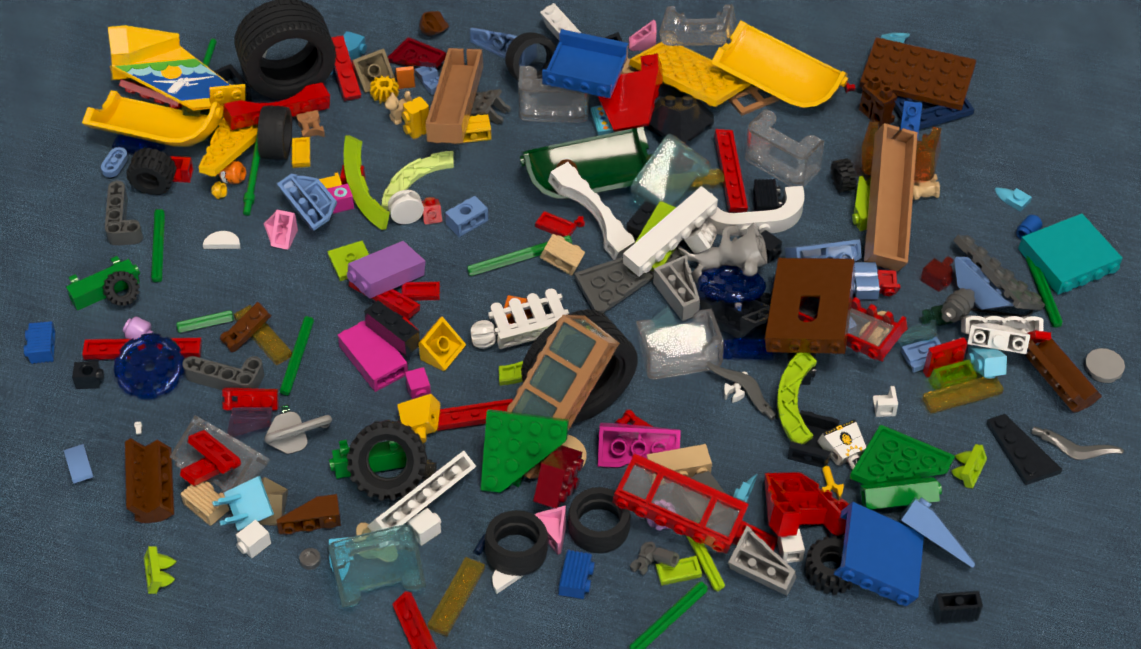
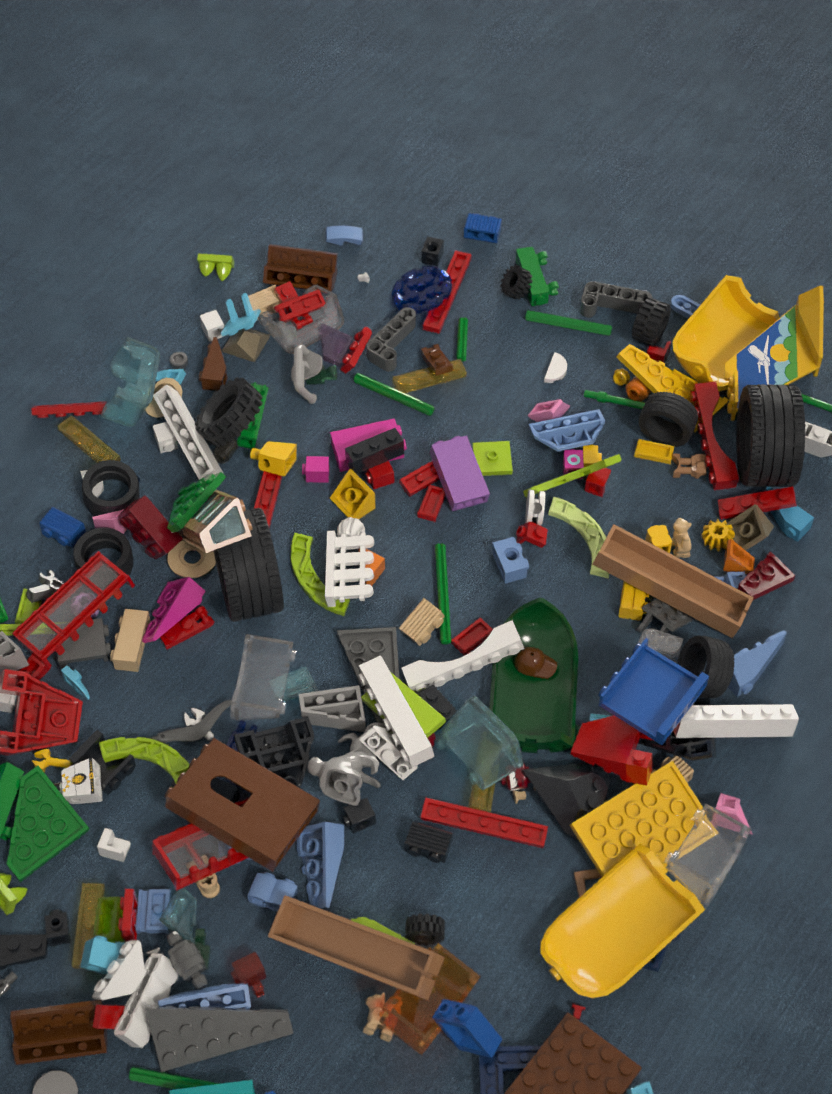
camera: 110 degrees right, 5 degrees up
(135, 327) = (467, 290): lavender head -> none
(432, 23) = (815, 610): reddish brown cap -> none
(731, 285) = (304, 749): clear blue plate -> none
(770, 220) = (419, 778): white arch -> none
(779, 154) = (480, 864): clear windscreen -> none
(878, 100) = (520, 1012): reddish brown hips -> none
(888, 282) = (259, 914): red bracket -> none
(978, 412) = (57, 934): none -> black brick

